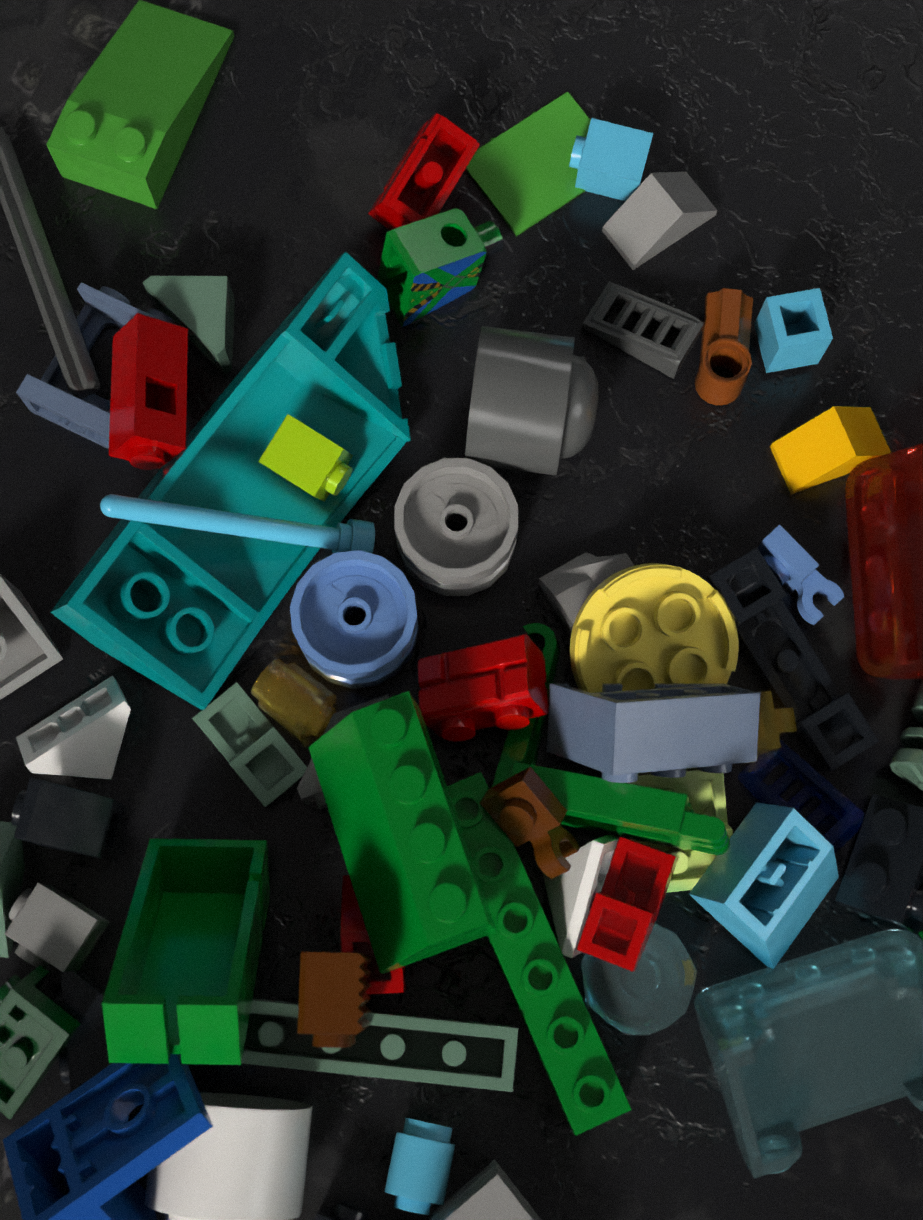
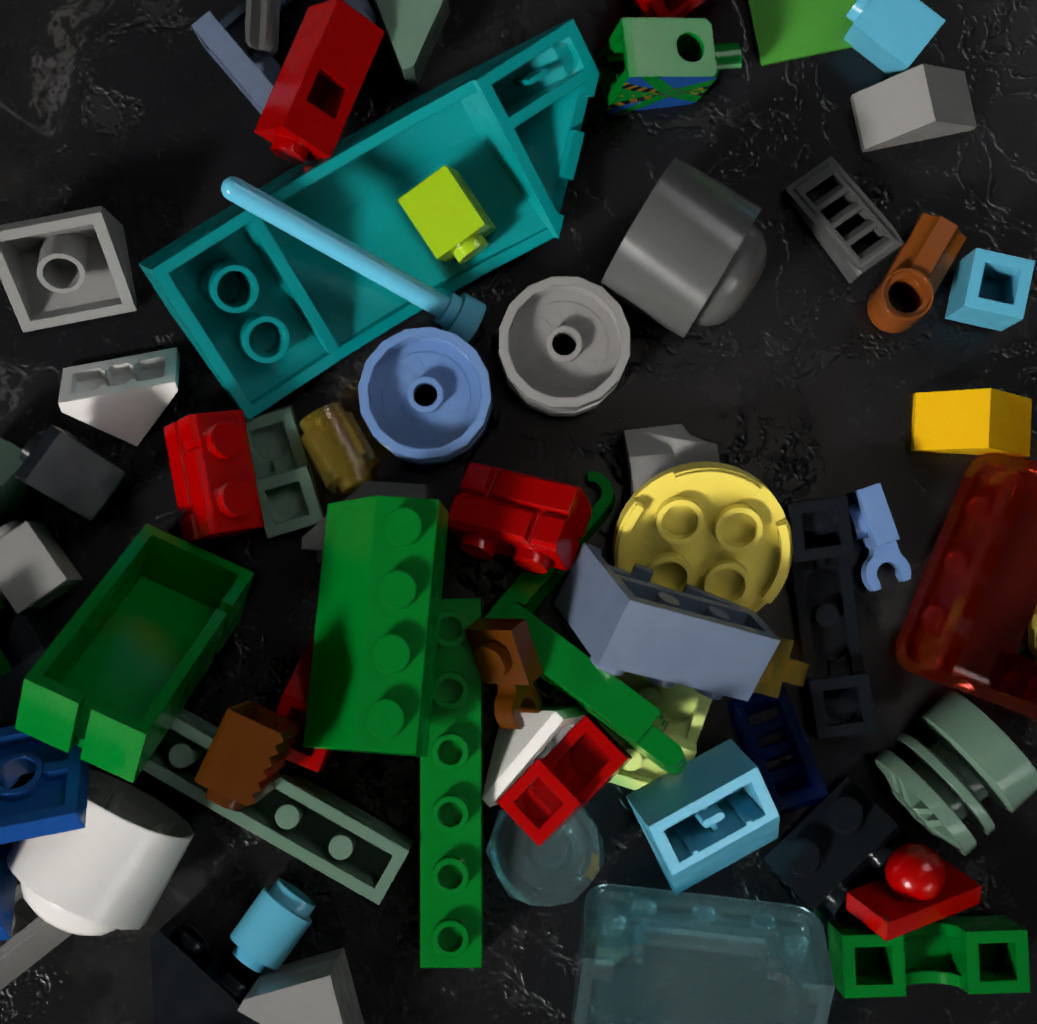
camera: 25 degrees right, 10 degrees up
(193, 770) = (213, 475): none -> red brick

